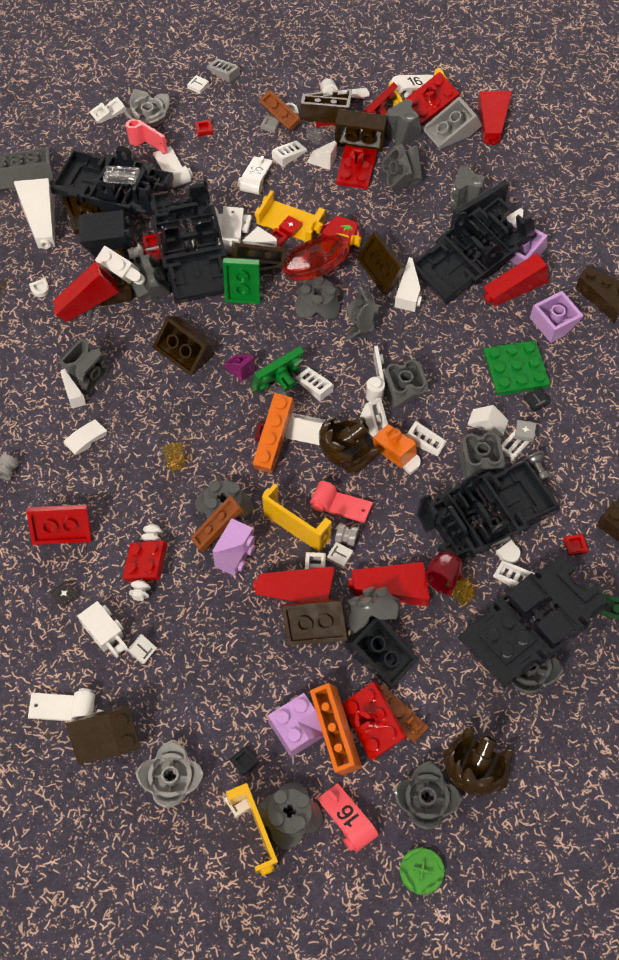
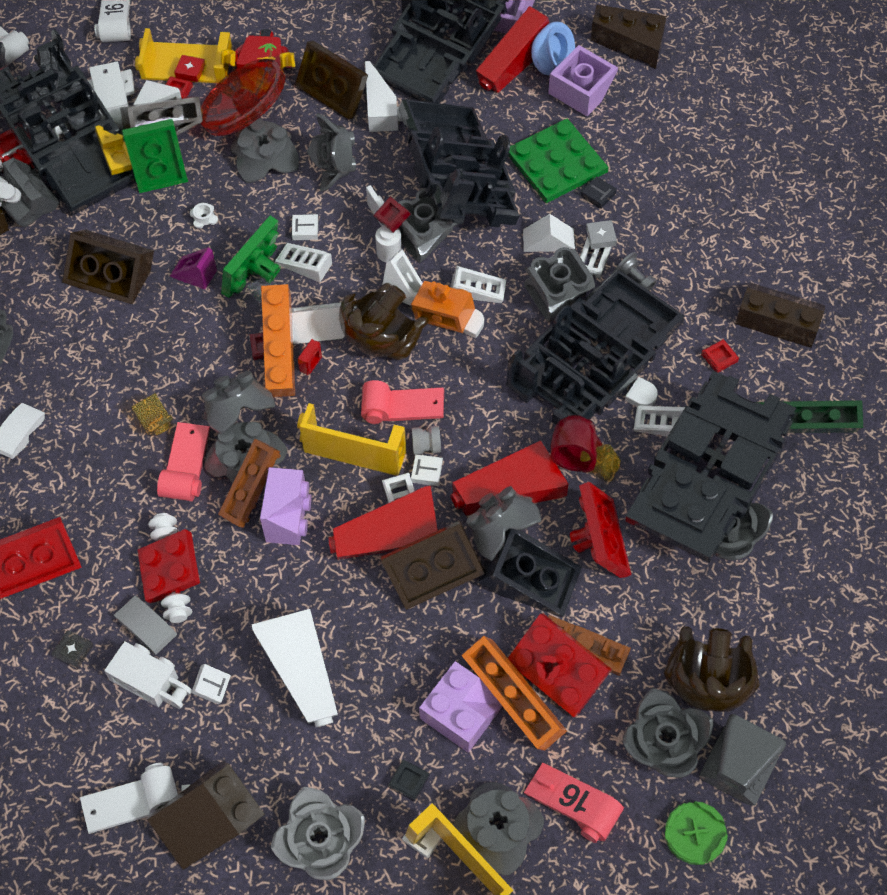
camera: 20 degrees left, 0 degrees up
(116, 594) = (145, 625): none -> light grey slope
(182, 496) = (185, 463): none -> coral door
(202, 655) = (297, 657): none -> white slope
(216, 269) = (114, 151): none -> yellow slope
(228, 461) = (230, 396): none -> dark grey brick
(260, 326) = (200, 210): none -> white plate
(291, 451) = (310, 357): none -> red tile
(324, 360) = (305, 227): none -> white tile
(382, 371) = (391, 214): none -> dark red tile
(440, 639) = (601, 531): none -> red plate
(454, 333) = (457, 179): none -> black piece
(473, 834) = (742, 760): none -> dark grey piece
(544, 285) = (552, 46): none -> light blue piece

